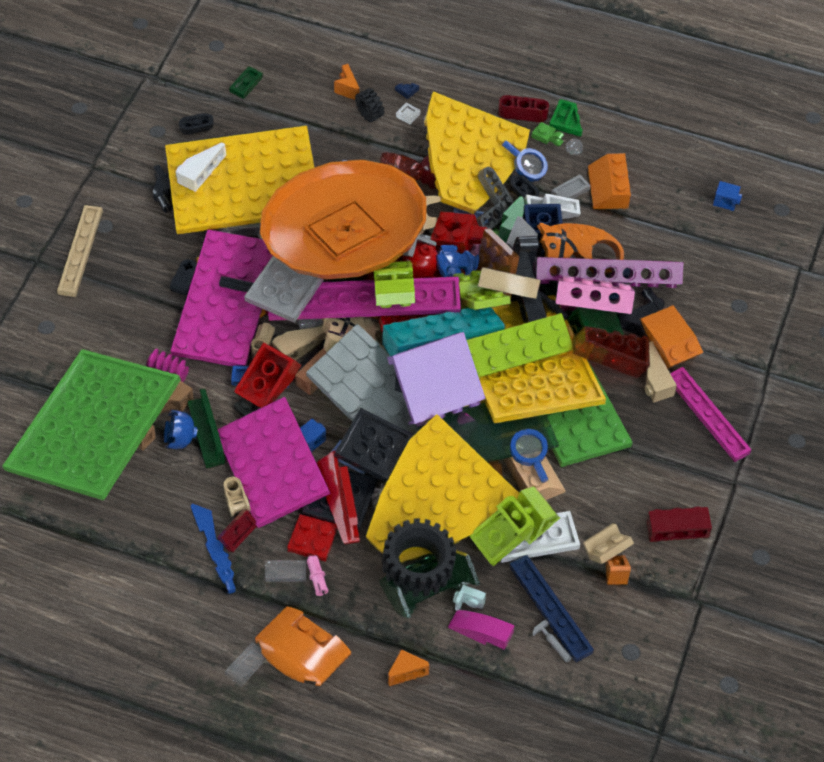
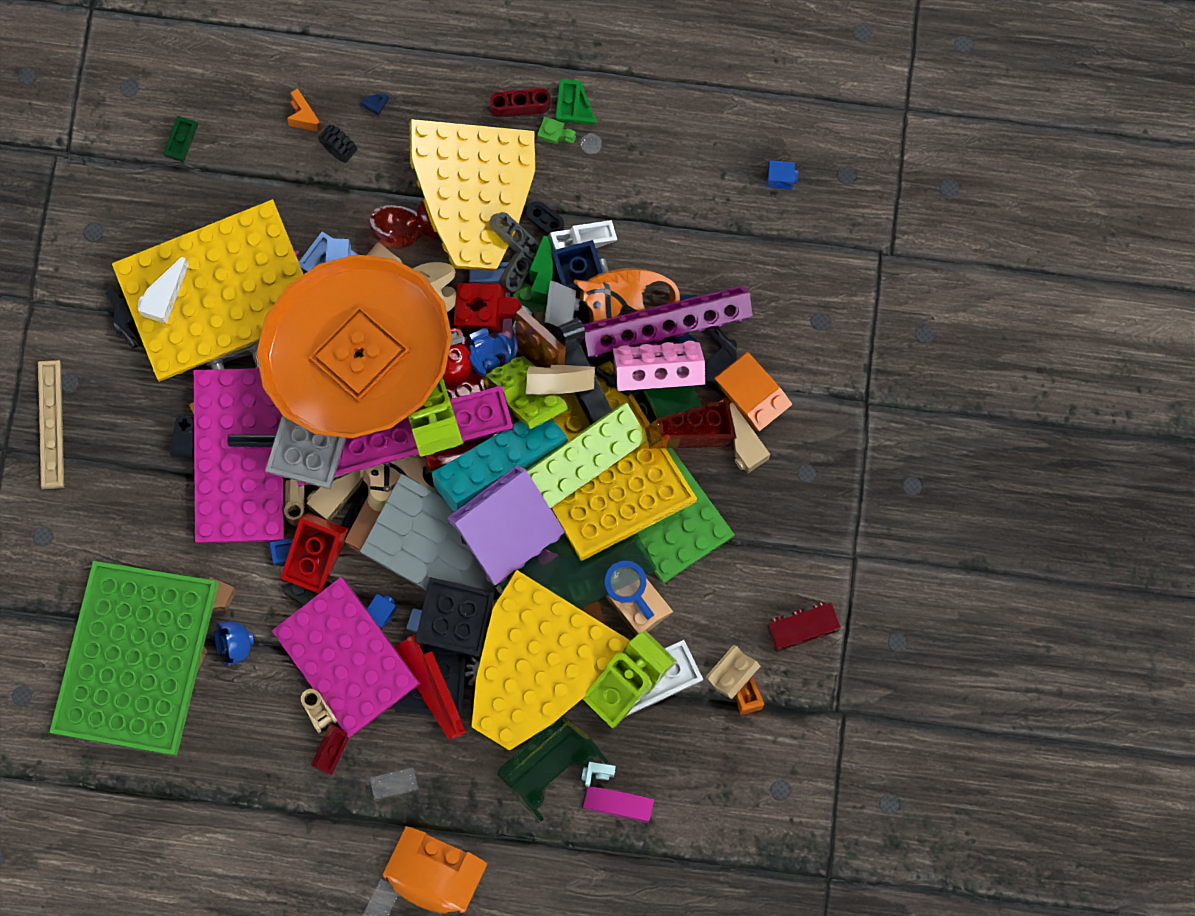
camera: 15 degrees left, 20 degrees up
(166, 364) = (196, 561): dark pink piece -> none
(196, 123) = (136, 212): black plate -> none
(206, 430) = (262, 631): dark green fence -> none
(215, 547) = (290, 744): blue sword -> none
(312, 537) = (413, 736): red plate -> none
(317, 575) = (429, 782): bright pink axle -> none
(407, 113) = (384, 138): clear tile -> none
(407, 668) = (551, 870): orange slope -> none
(422, 536) = (543, 720): black tyre -> none
(528, 162) = (543, 182): piece -> none
(551, 608) = (687, 761): dark blue plate -> none
(552, 640) = (697, 799): light grey piece -> none
(572, 188) = (599, 204): light grey tile -> none
(609, 182) = (642, 187): orange slope -> none
(710, 415) = (811, 478): dark pink plate -> none

